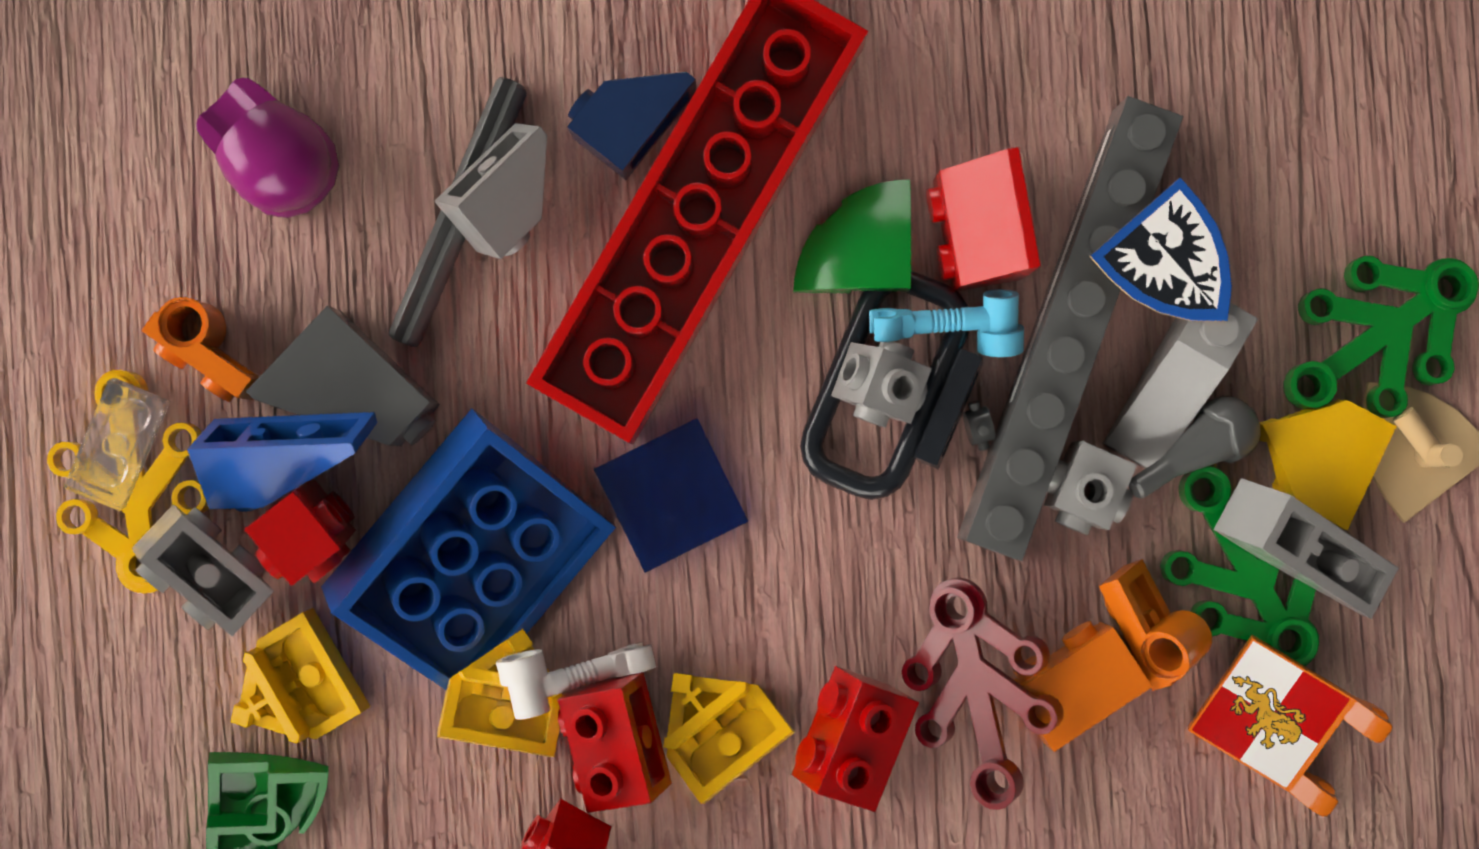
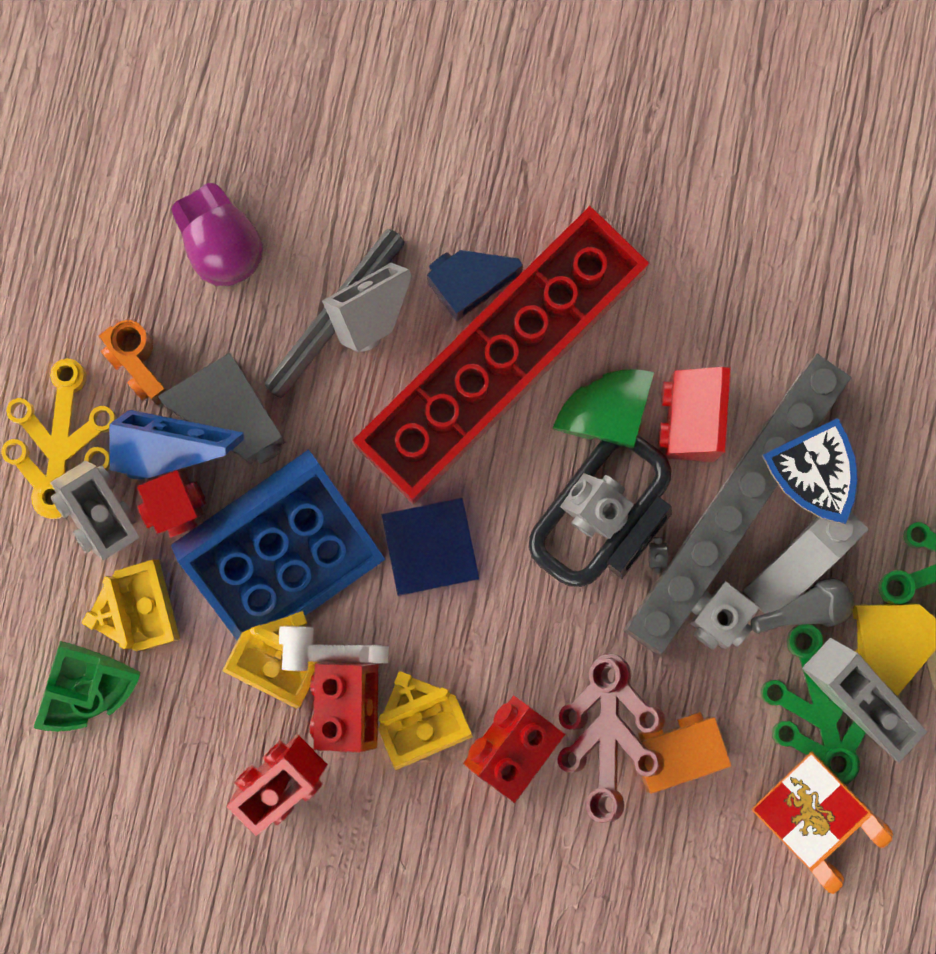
camera: 15 degrees right, 5 degrees down
(116, 444) = (59, 409): clear plate -> none
(995, 323) = (686, 484): medium azure brick -> none
(1149, 626) = (741, 726): orange plate -> none

